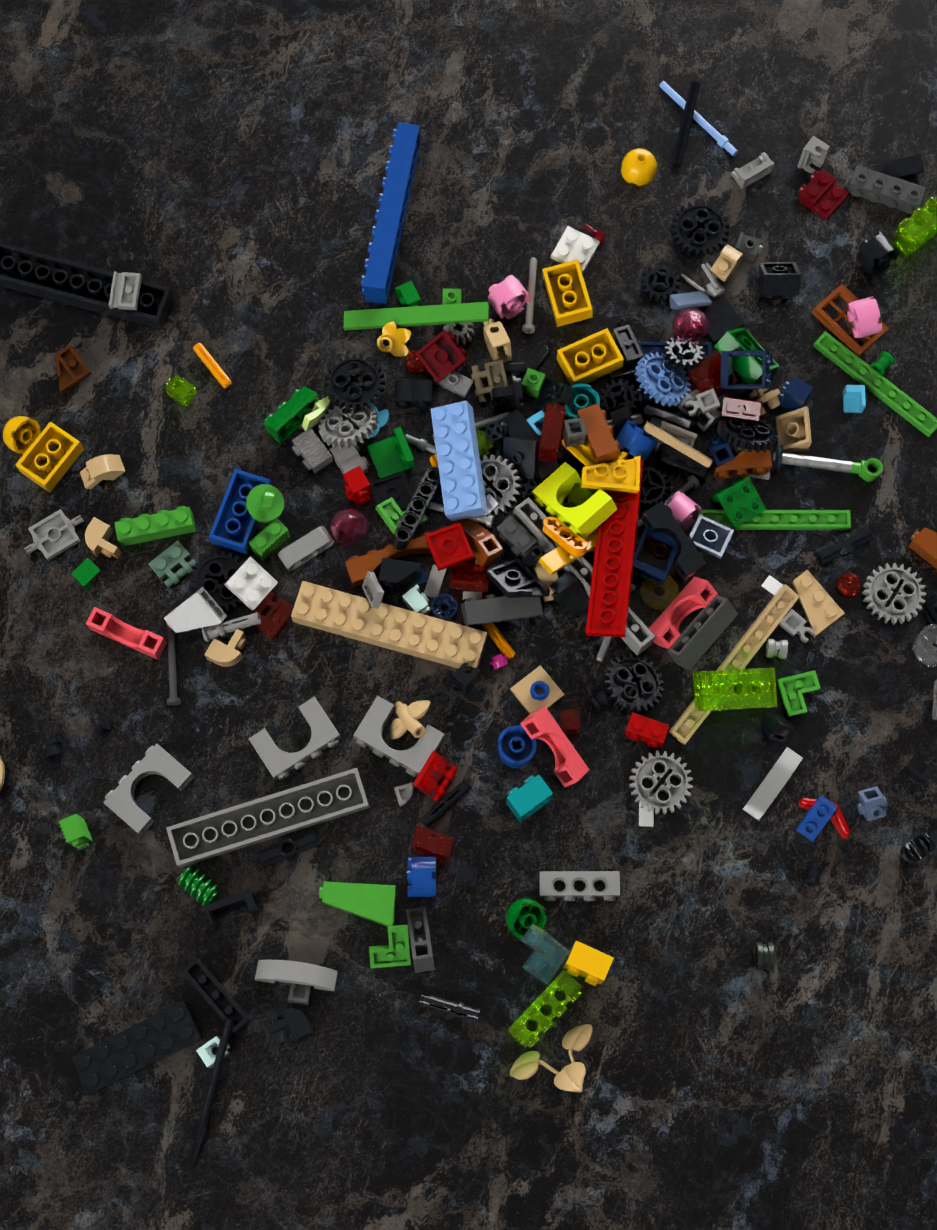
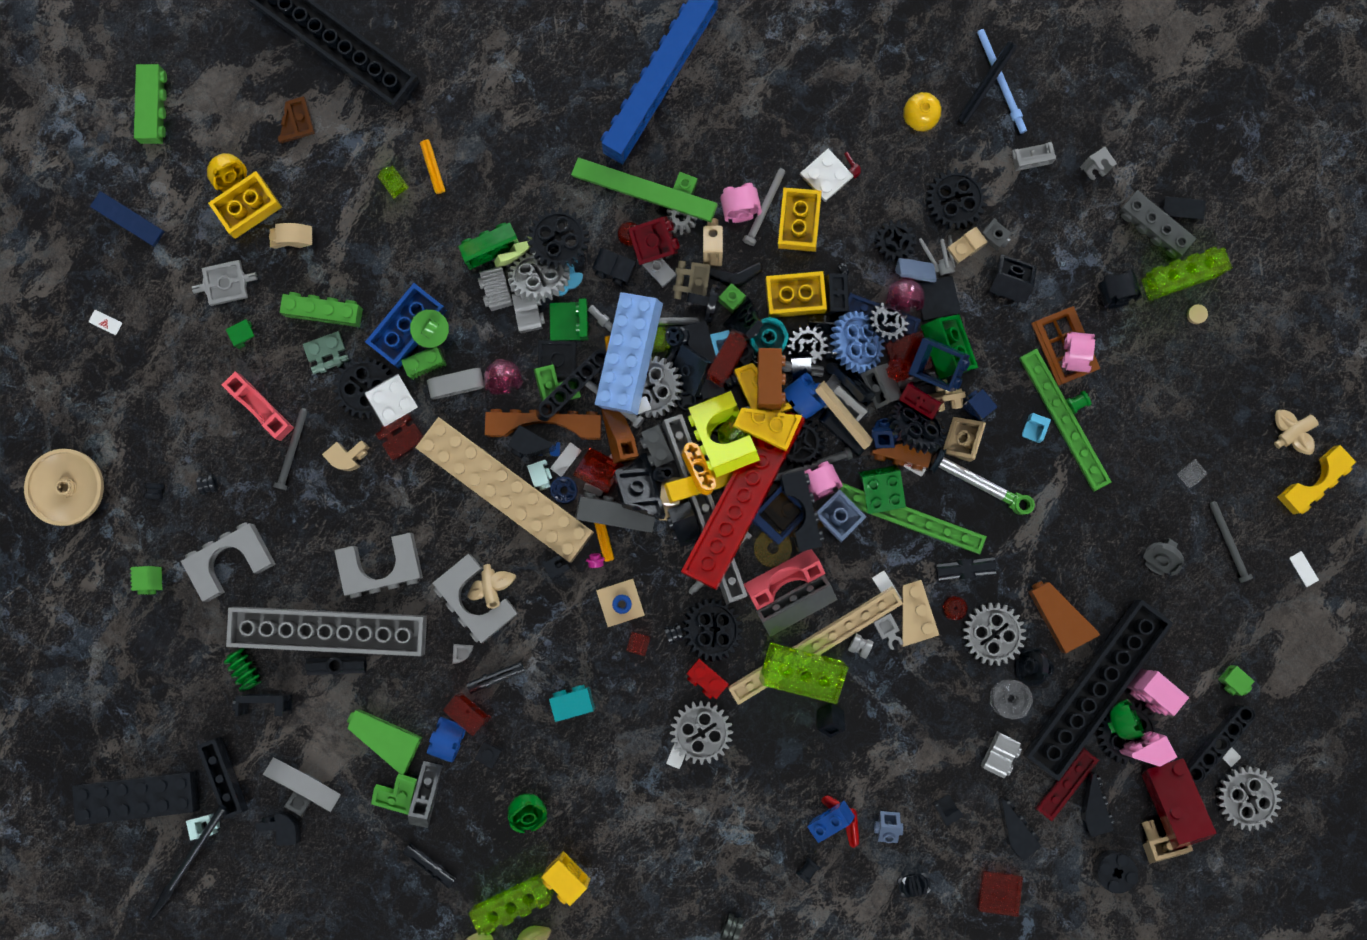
camera: 20 degrees right, 10 degrees up
(97, 536) = (262, 301): tan brick -> none
(125, 291) = (371, 64): light grey plate -> none
(195, 613) = (328, 411): slope -> none
(229, 626) = (348, 434): light grey pin -> none
(357, 486) = (524, 342): red brick -> none
(373, 590) = (500, 451): light grey plate -> none
(396, 338) = (617, 203): yellow plate -> none
(408, 295) = (645, 166): green brick -> none
(431, 773) = (490, 646): red plate -> none
(449, 546) = (588, 434): red plate -> none
(519, 757) = (569, 647): blue brick -> none
(546, 954) = (533, 852): clear light blue brick -> none
(568, 763) = (621, 685): coral arch -> none
(574, 432) = (747, 369): dark grey brick -> none
(610, 879) = (562, 783): light grey brick -> none
(705, 402) = (887, 383): light grey plate -> none
(772, 783) = (806, 771): light grey slope -> none
(792, 691) = (859, 690): bright green plate -> none
(822, 194) = (1092, 206): dark red plate -> none

